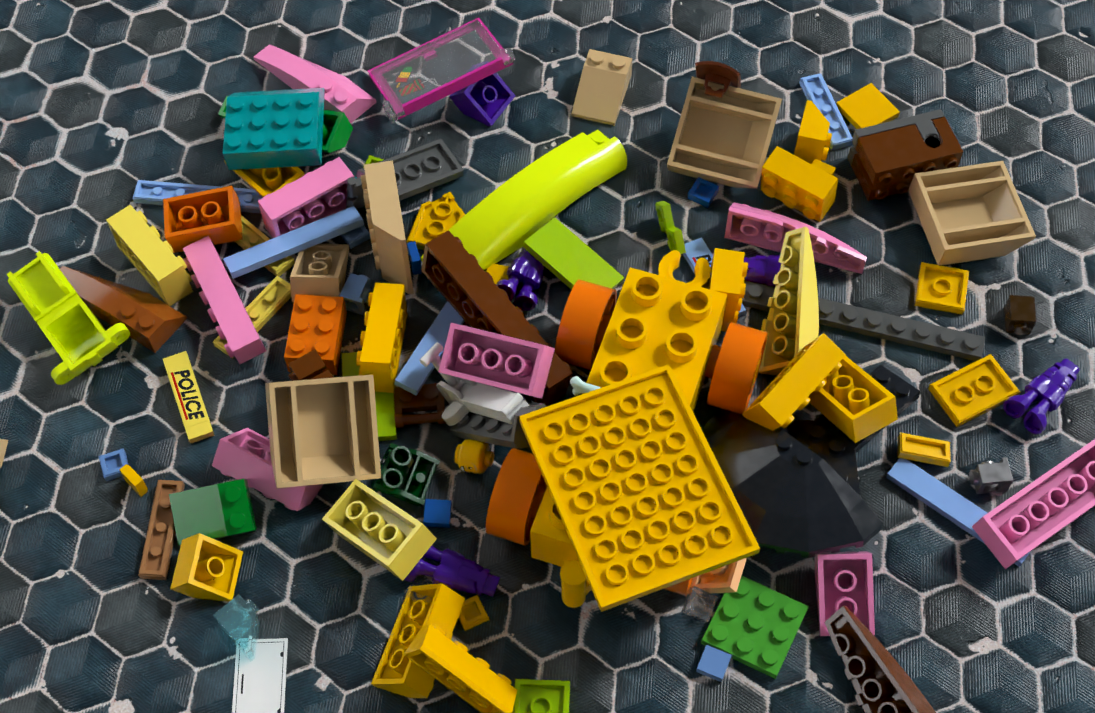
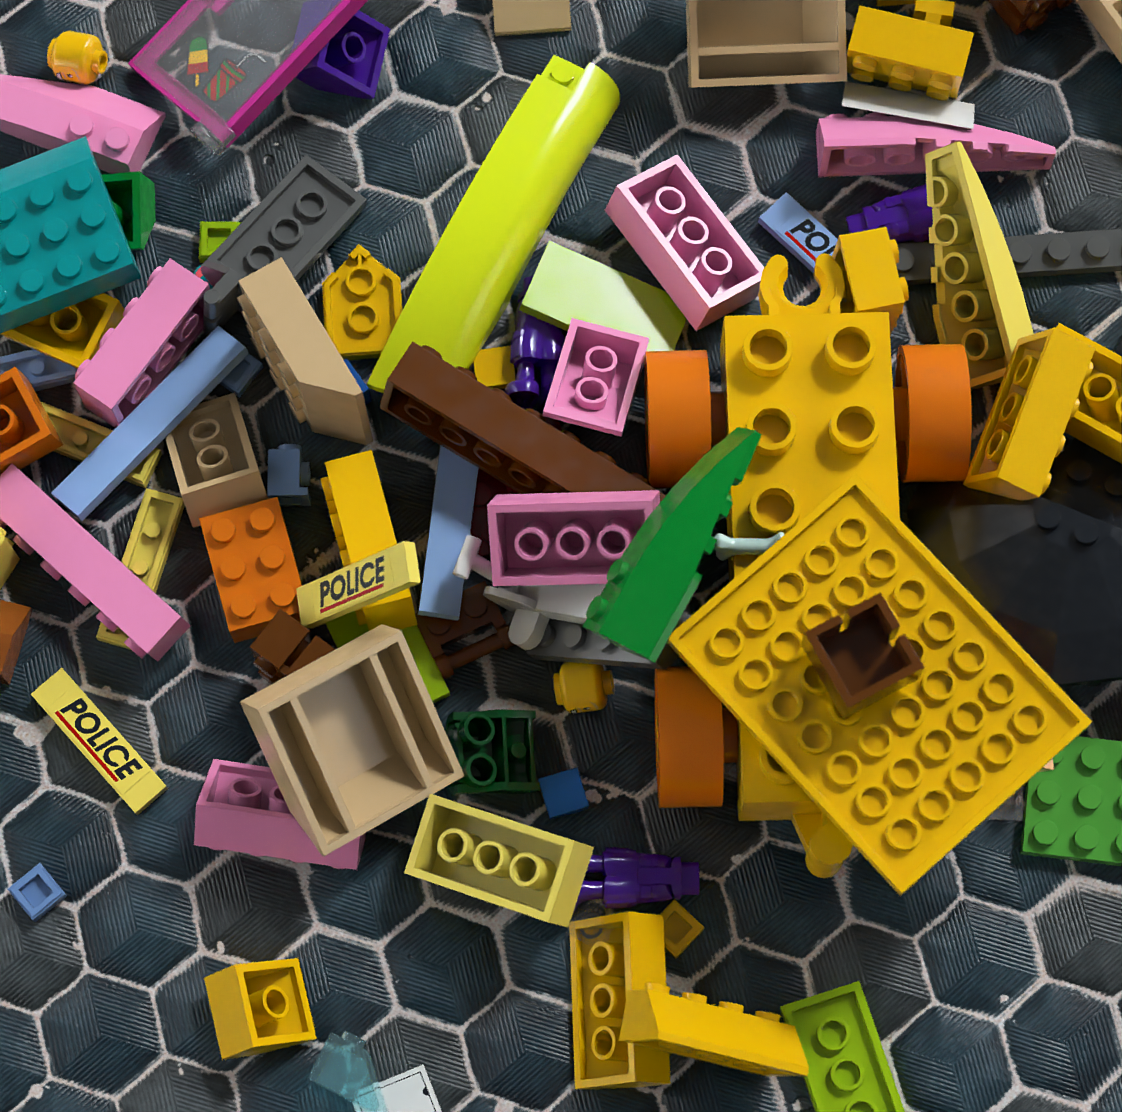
camera: 20 degrees left, 15 degrees up
(134, 480) = (82, 908): yellow tile -> none
(160, 533) = (159, 968): medium nougat tile -> none
(213, 510) = (231, 918): green slope -> none
(341, 58) = (77, 57): none -> yellow head
(362, 345) = (358, 584): none -> light yellow tile
(533, 379) = (658, 568): none -> green wedge
(546, 287) = (596, 377): none -> bright pink slope
(629, 234) = (686, 242): none -> bright pink brick
(629, 464) = (859, 661): none -> reddish brown piece
(666, 223) = (721, 182): lime tile -> none
(703, 192) = (758, 108): blue tile -> none
(713, 663) = (1051, 878): medium blue tile -> none
(789, 212) = (908, 105): none -> white sticker

